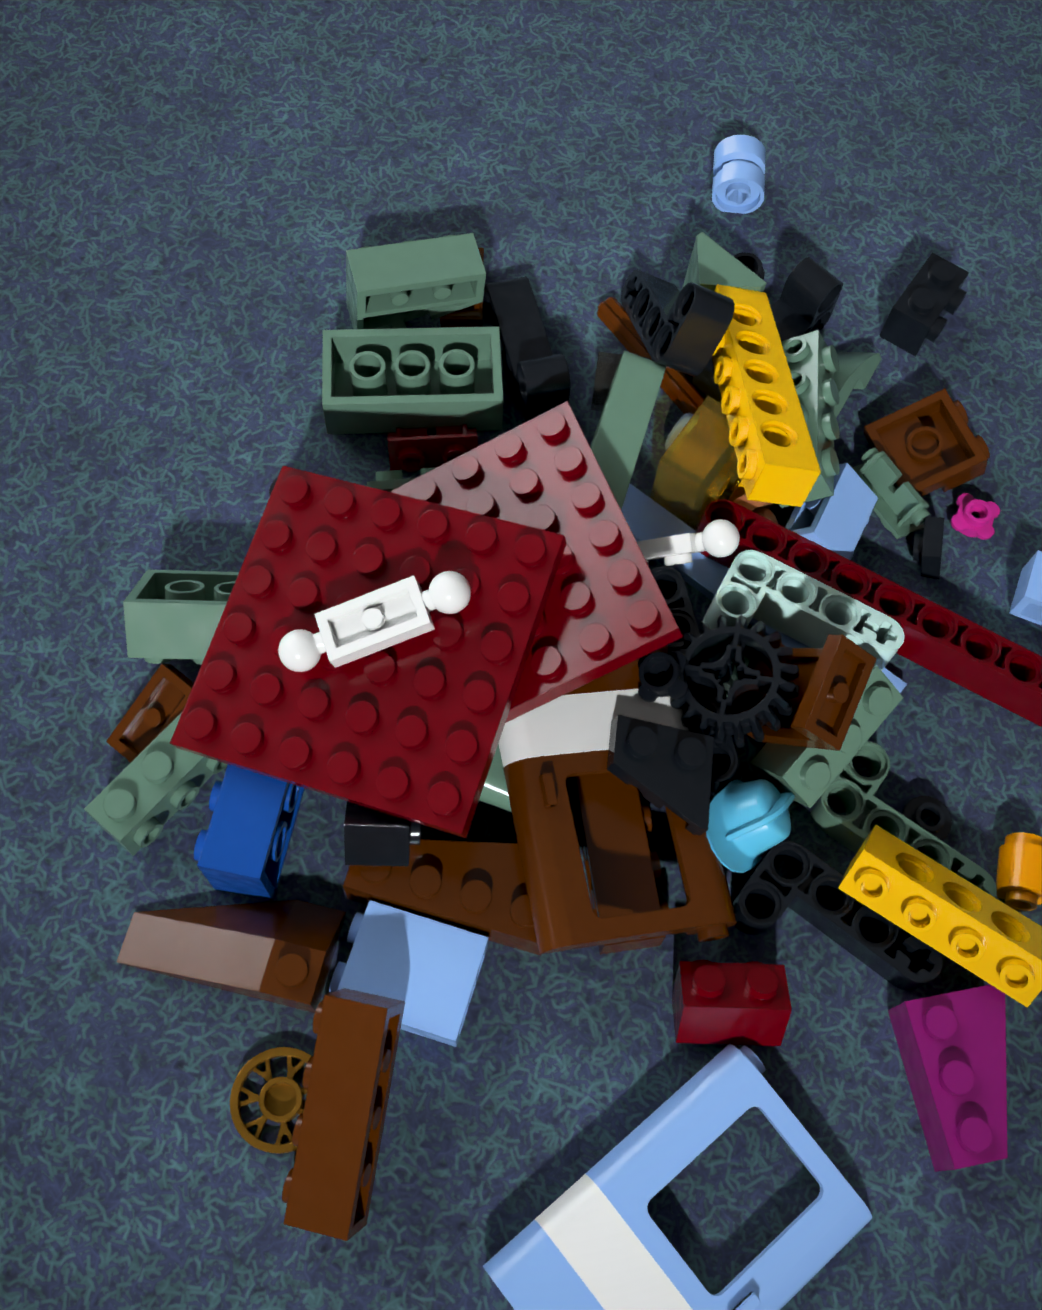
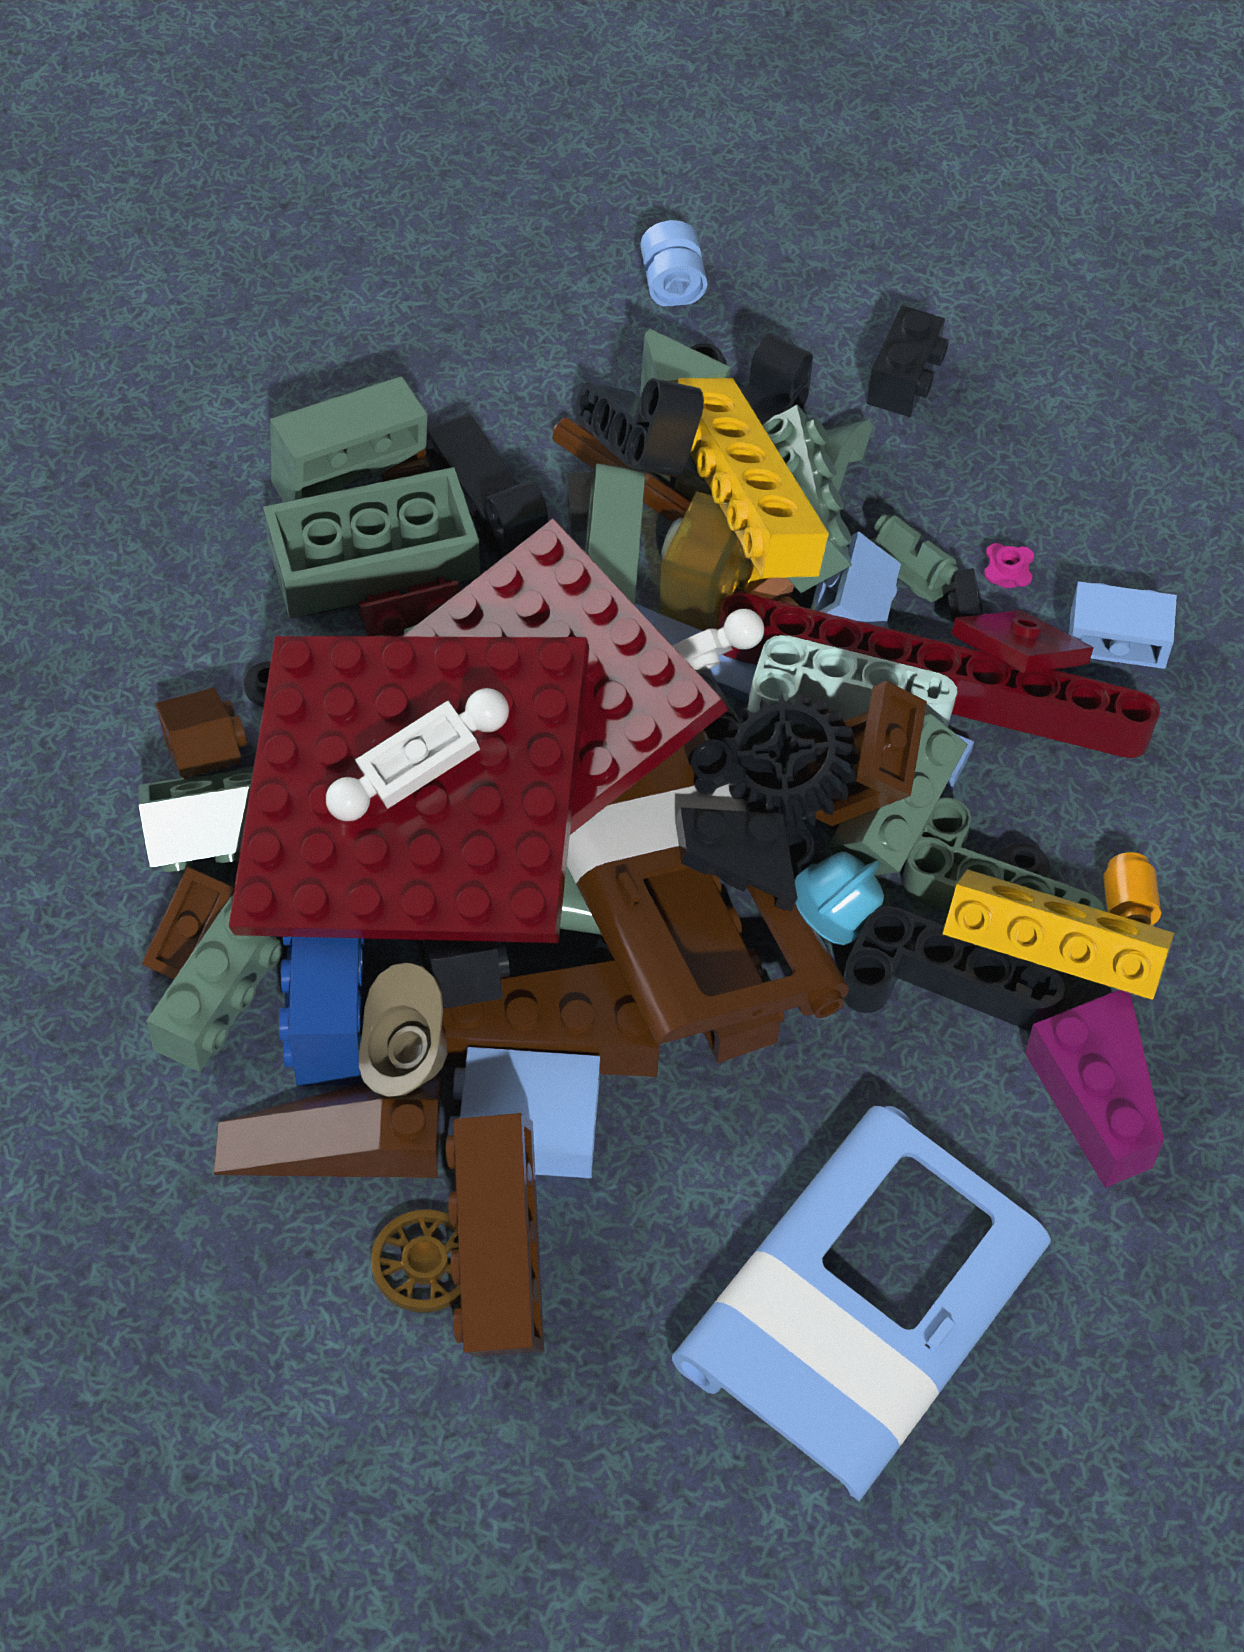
camera: 10 degrees left, 10 degrees down
(213, 531) = (201, 732): none -> reddish brown brick
(306, 882) = (402, 1031): none -> dark tan piece
(730, 1003) = (861, 1068): dark red brick -> none
(930, 444) = (945, 500): reddish brown plate -> none
(973, 598) = (1022, 641): none -> dark red plate

